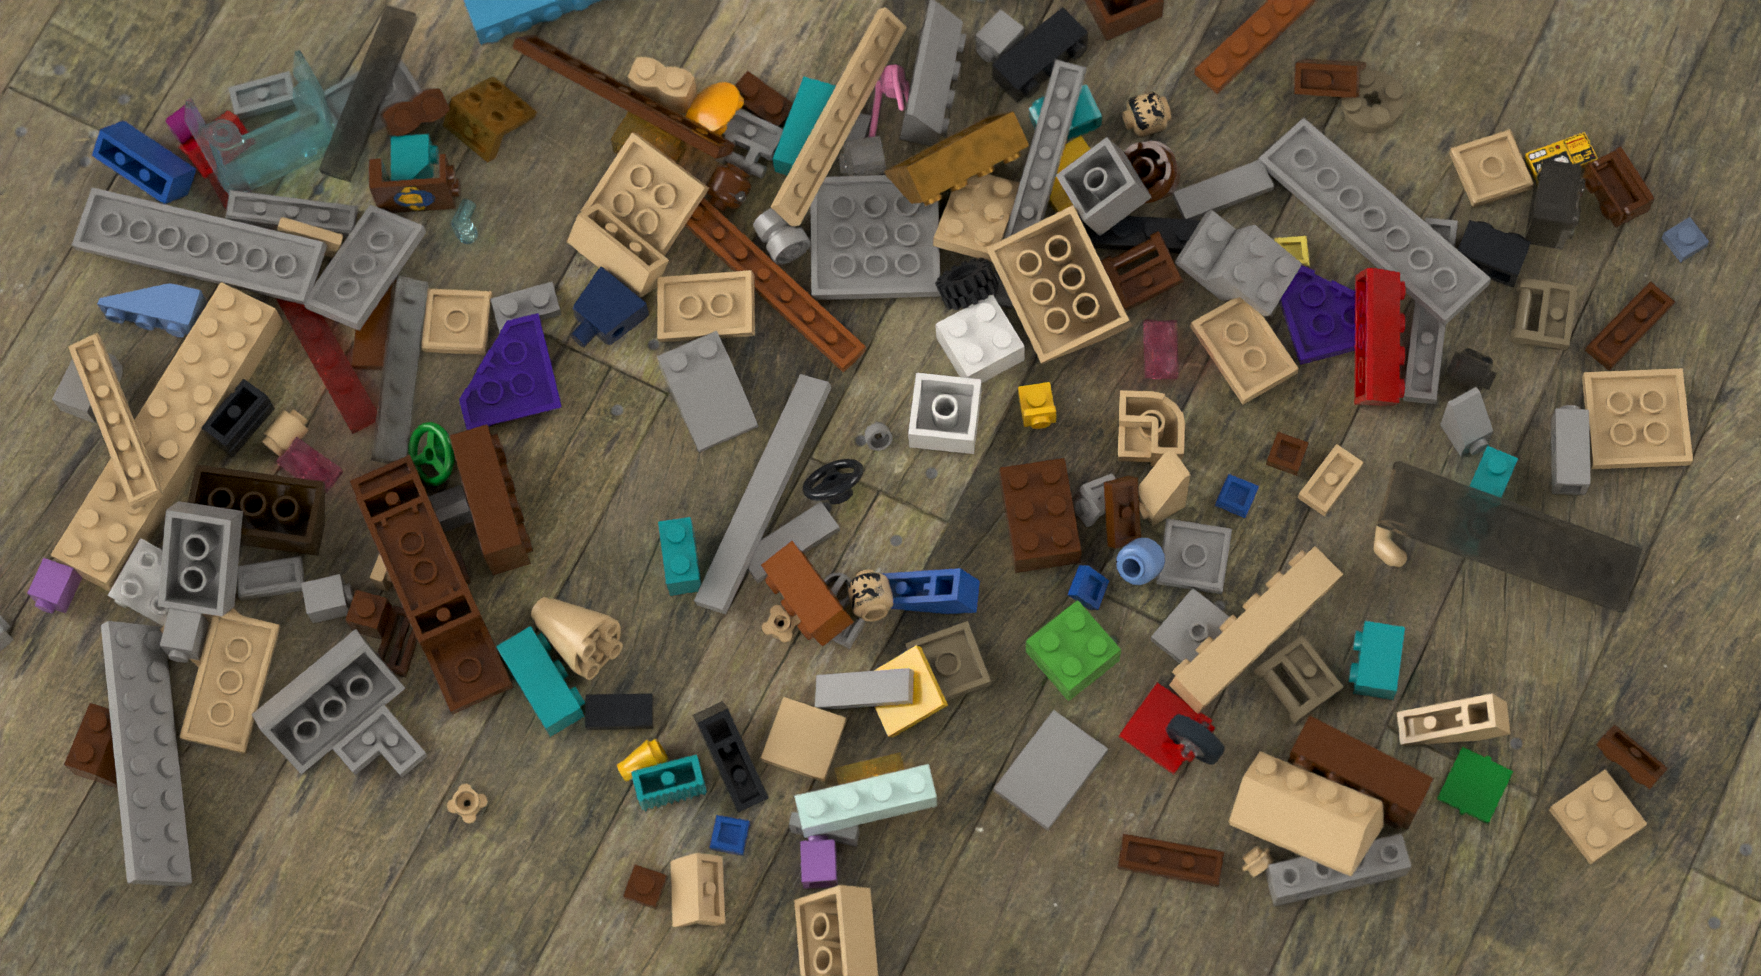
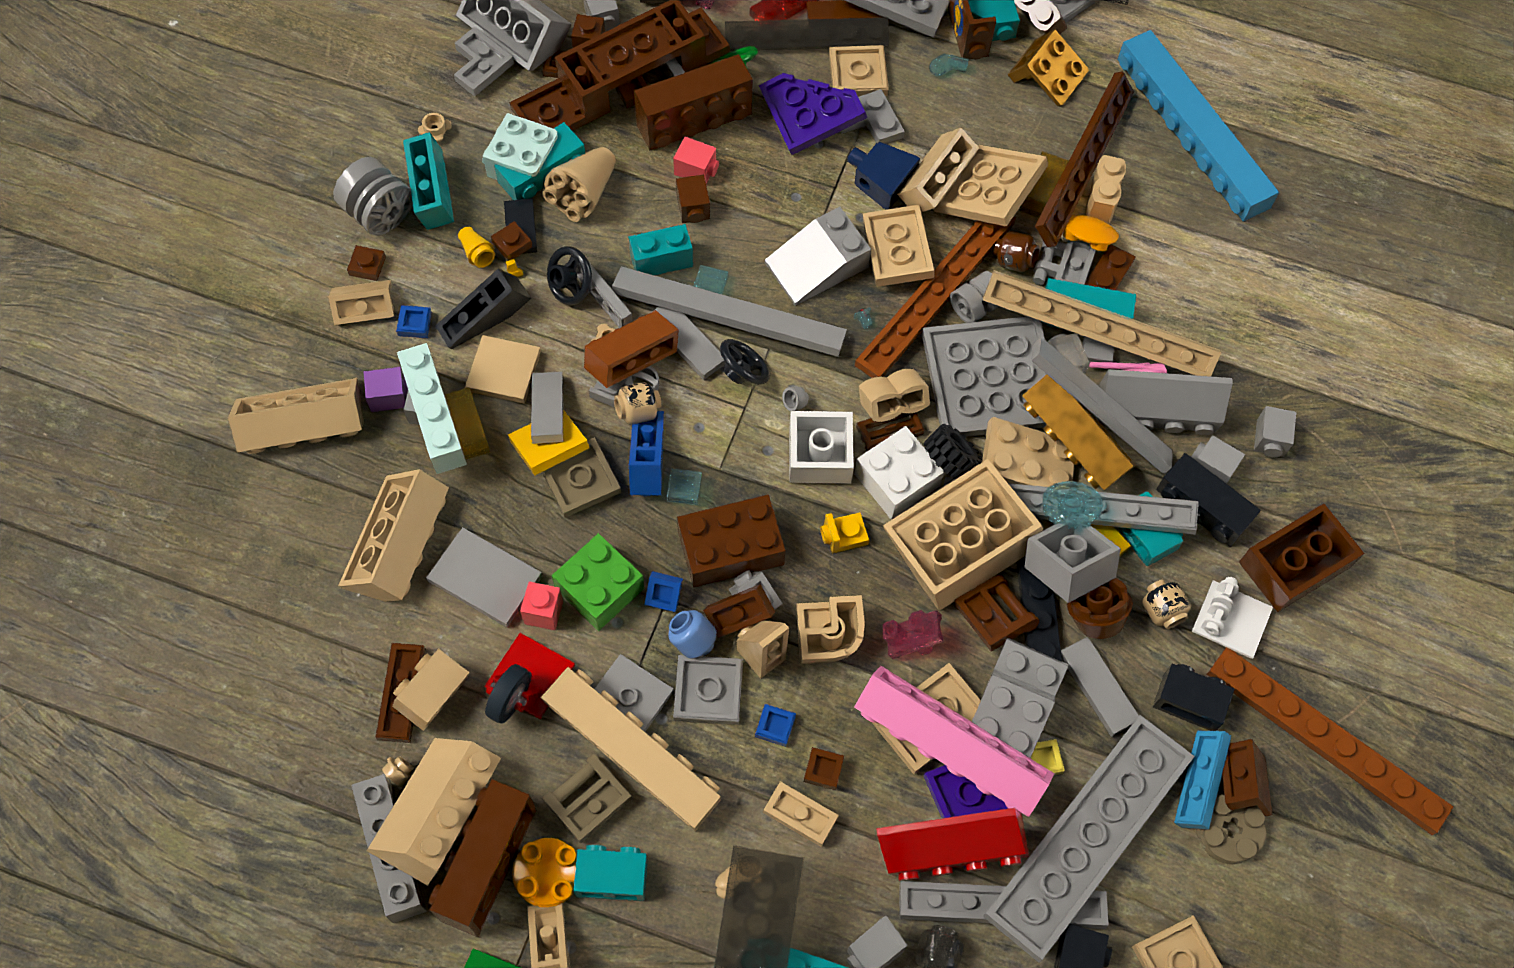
camera: 75 degrees right, 5 degrees down
(522, 700) = (519, 146): none -> light aqua bracket
(553, 805) = (428, 181): none -> teal brick
(562, 509) = (695, 159): none -> coral brick
(571, 865) = (373, 196): none -> light grey wheel
(614, 516) = (693, 199): none -> reddish brown brick
(645, 718) = (511, 241): none -> reddish brown plate
(669, 782) = (452, 263): teal brick -> none
(678, 723) = (513, 269): none -> yellow piece
(706, 661) = (566, 276): none -> black piece
(719, 509) = (711, 279): none -> clear light blue tile
(723, 624) = (607, 298): none -> light grey tile
(785, 355) = (864, 318): none -> clear light blue piece
(890, 333) = (897, 394): none -> tan brick
(903, 322) = (866, 436): none -> reddish brown tile
(940, 129) = (1102, 405): none -> light grey tile
(970, 557) = (684, 486): none -> clear light blue plate
(997, 860) = (395, 536): none -> tan slope
(1046, 176) = (1072, 504): none -> clear light blue wheel
(1094, 708) = (541, 606): none -> coral brick
(1166, 58) = (1232, 618): none -> white hinge
(1177, 822) = (429, 689): none -> tan brick
(1244, 107) = (1193, 697): none -> black piece
(1279, 324) = (954, 741): none -> bright pink brick
(1325, 115) = (1202, 779): none -> dark azure tile
(1371, 719) = (545, 872): none -> light orange dish

